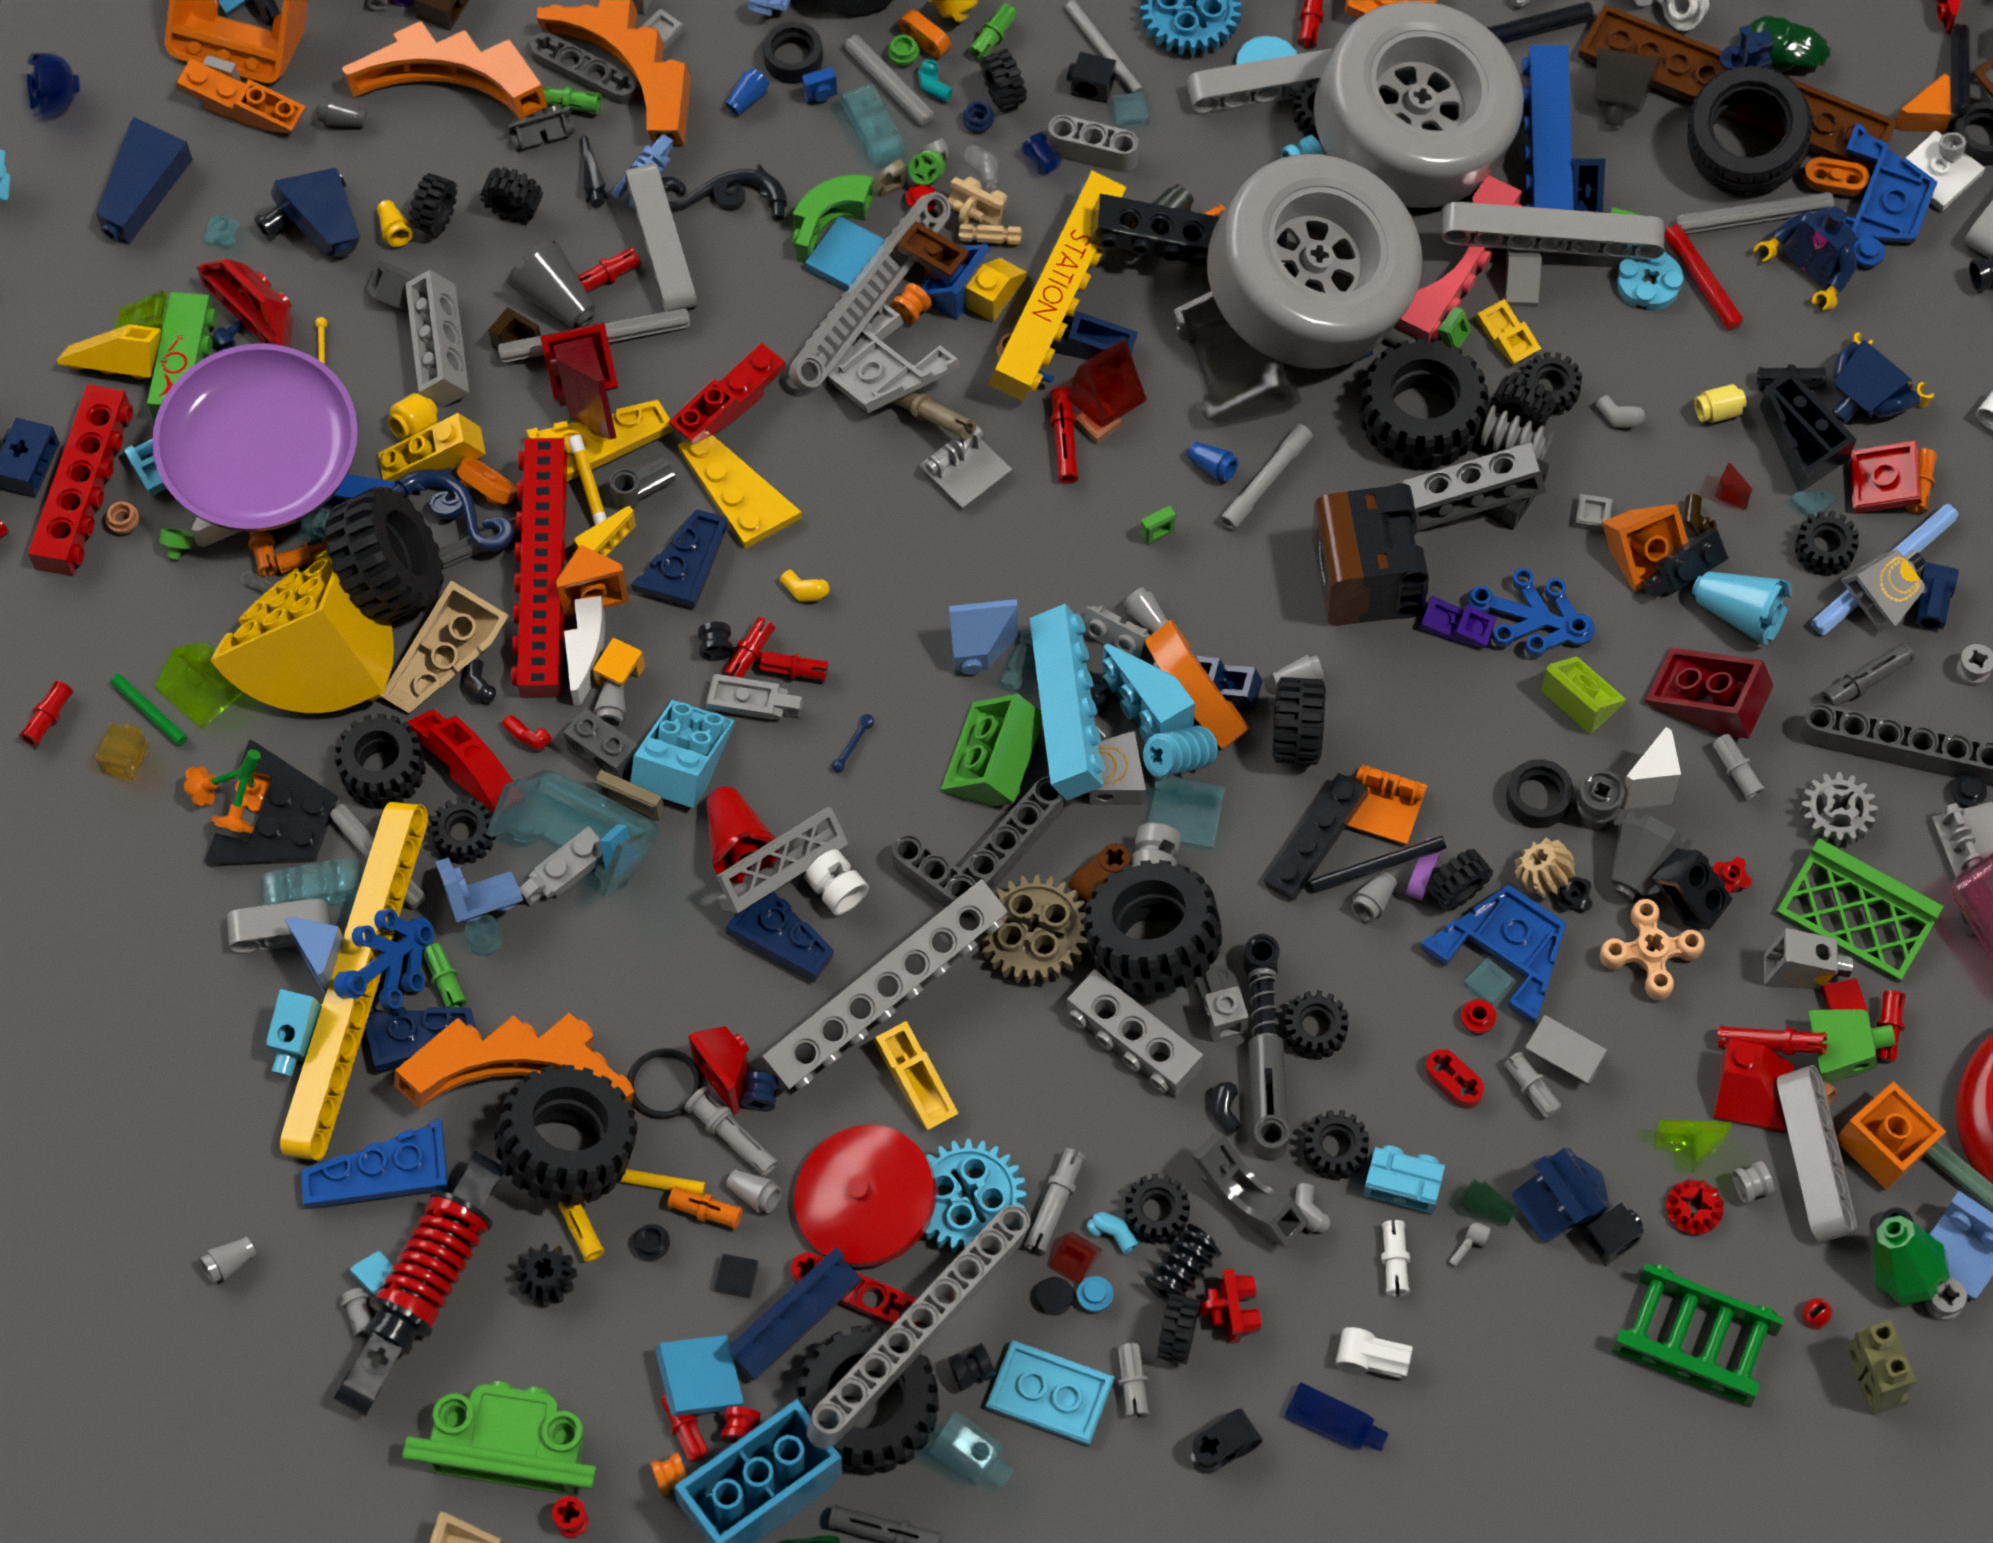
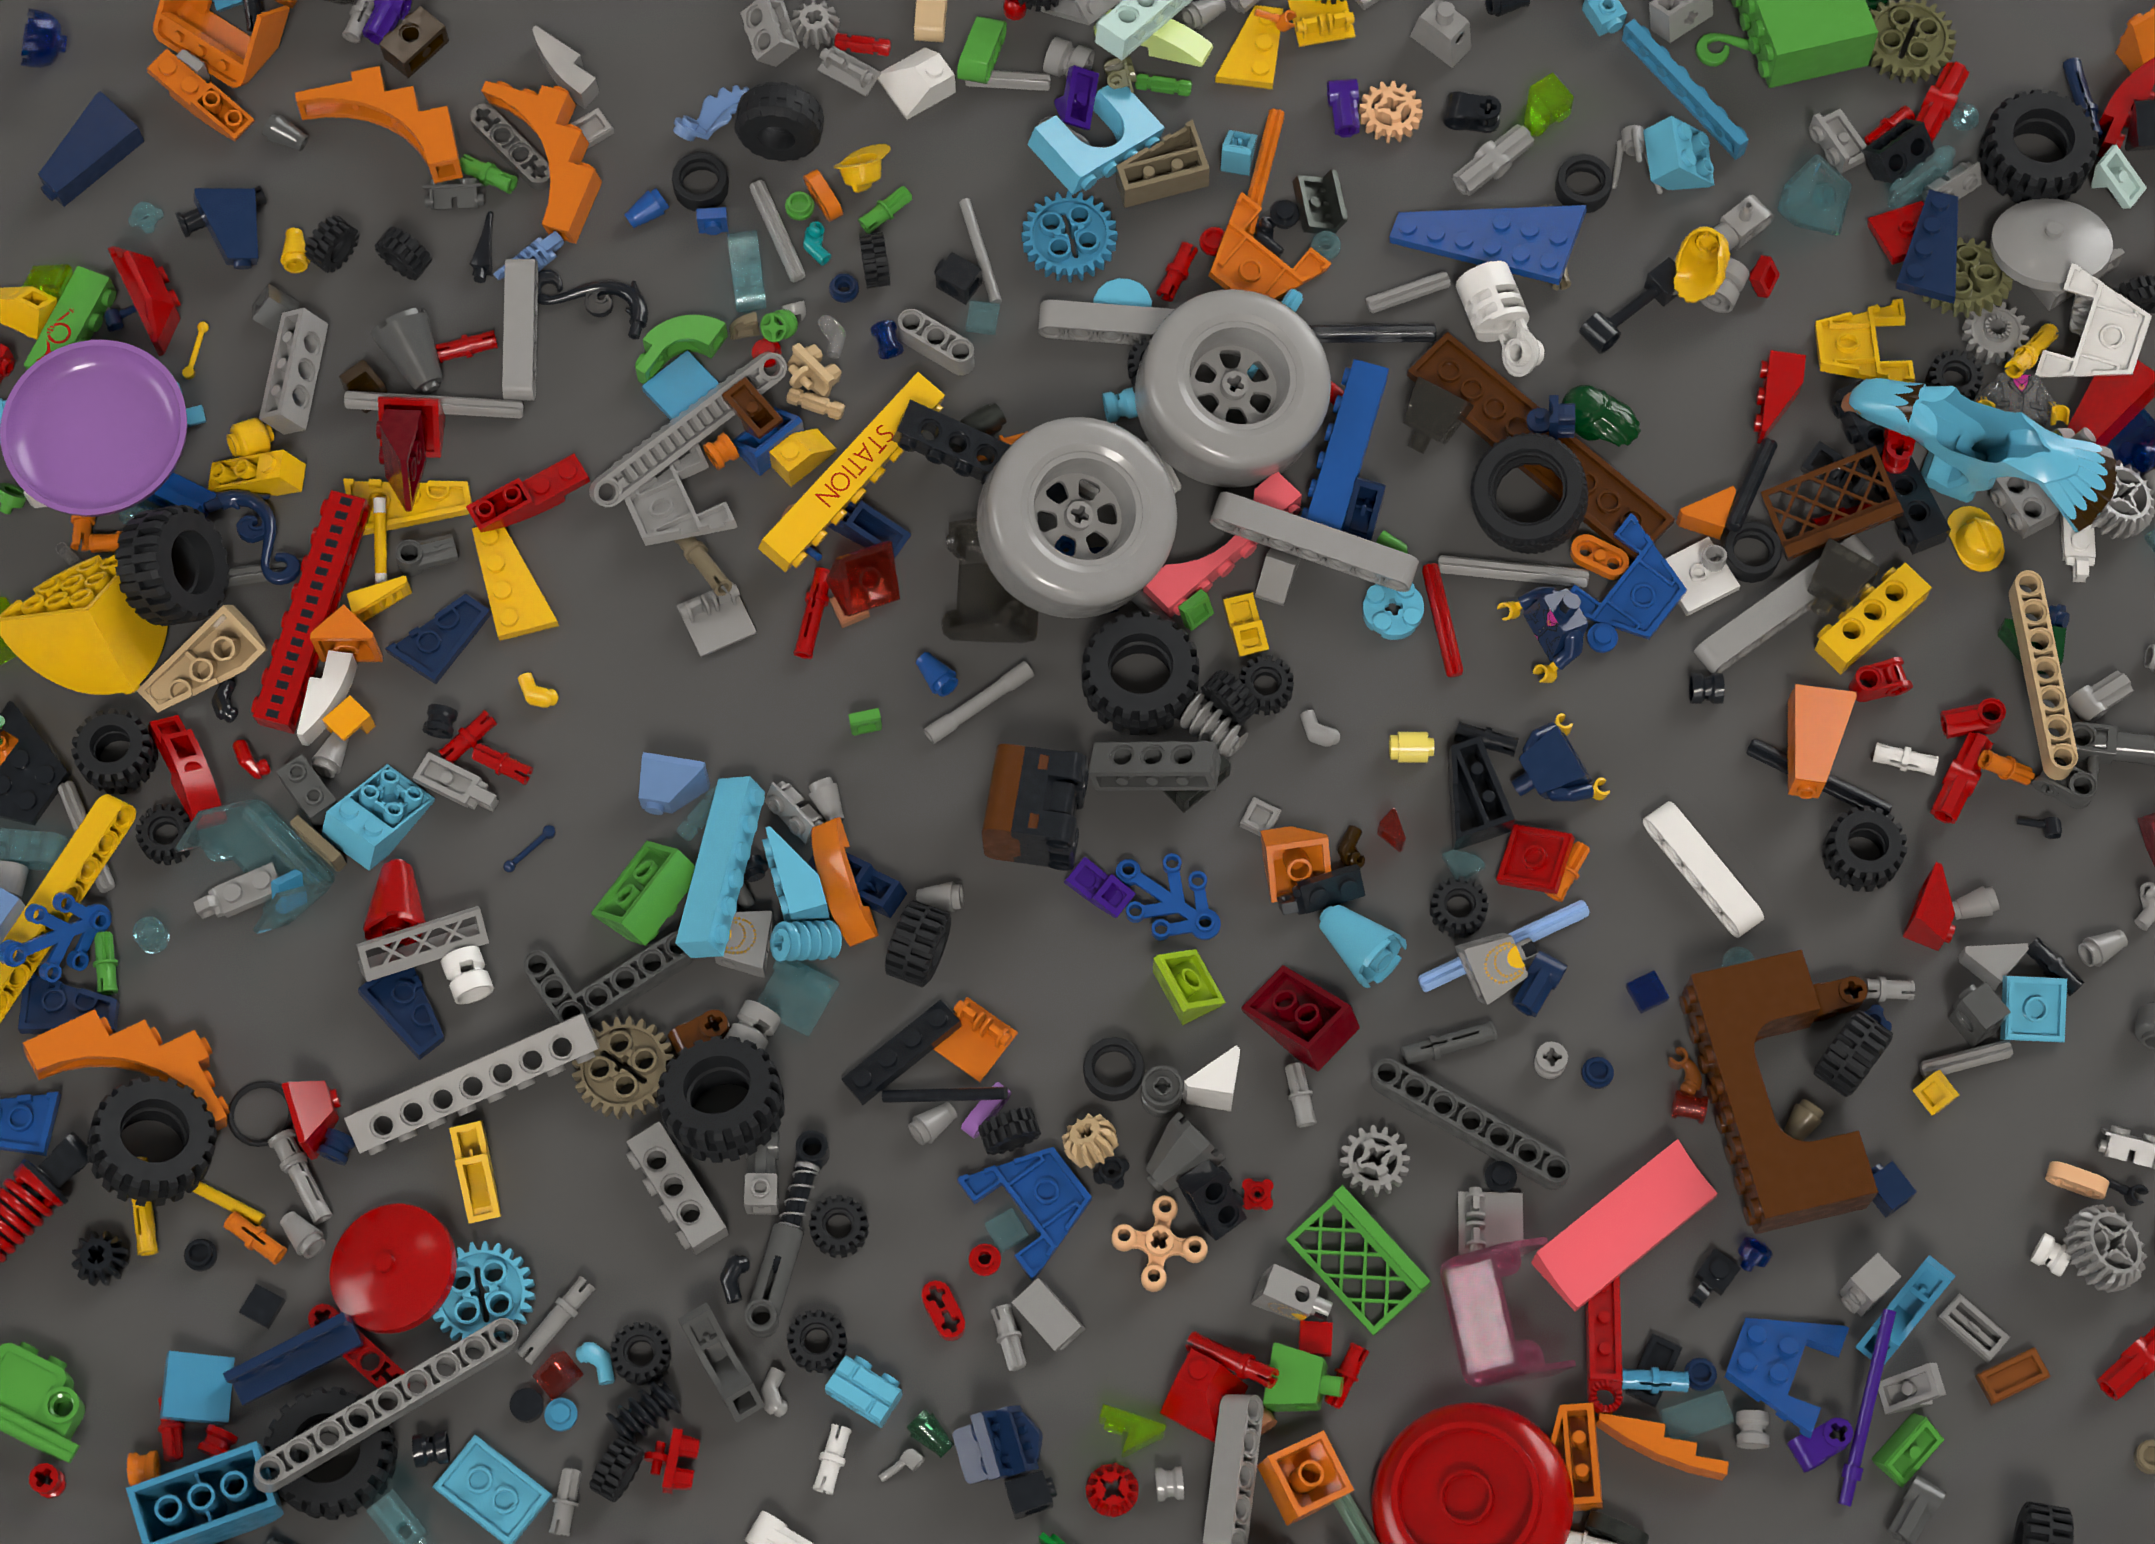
camera: 15 degrees right, 5 degrees up
(474, 900) = (148, 902): medium blue bracket -> none
(486, 480) = (293, 515): orange plate -> none

